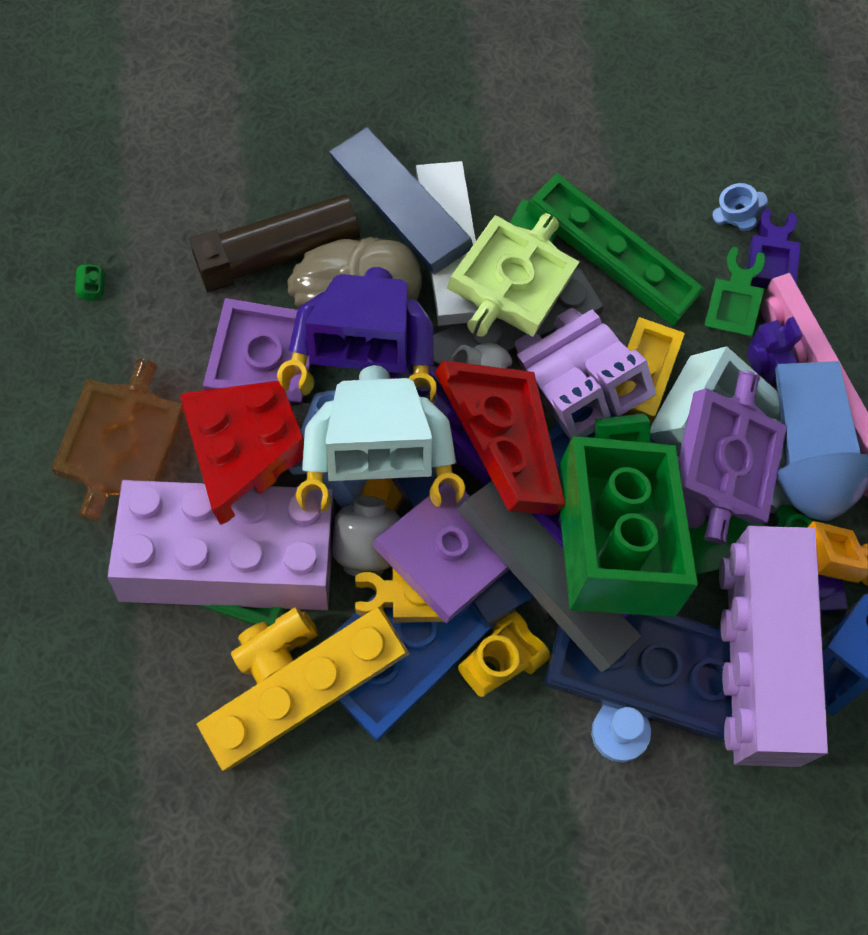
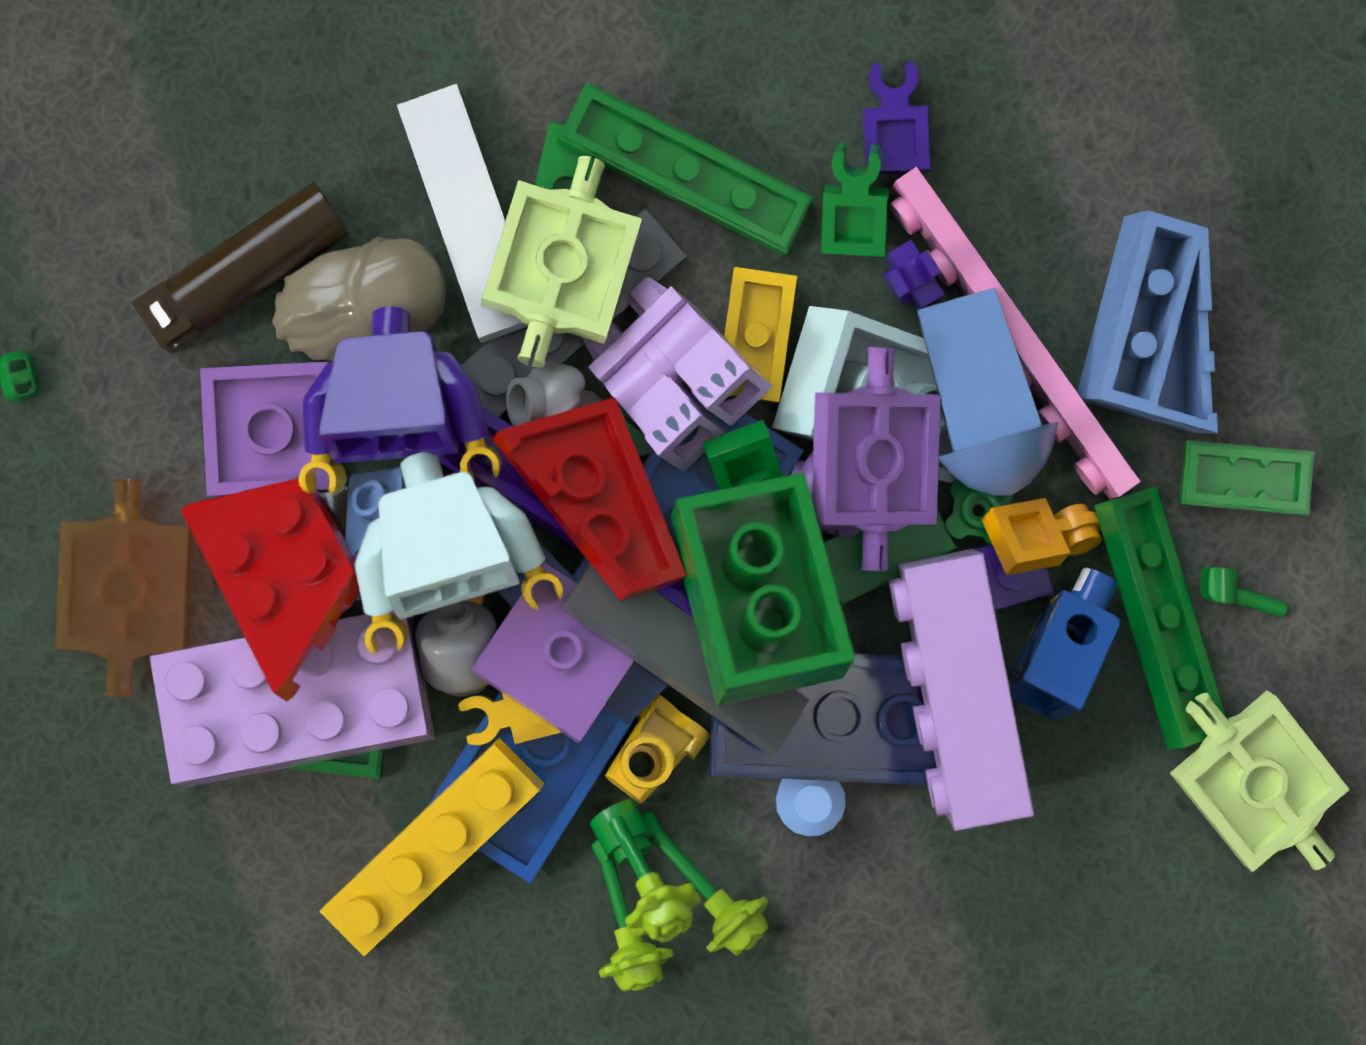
camera: 10 degrees left, 20 degrees up
(267, 648) = (378, 809): yellow plate -> none
(401, 200) = (388, 171): tile -> none
(485, 773) = (662, 909): none -> lime plant
(736, 197) = (828, 50): medium blue plate -> none

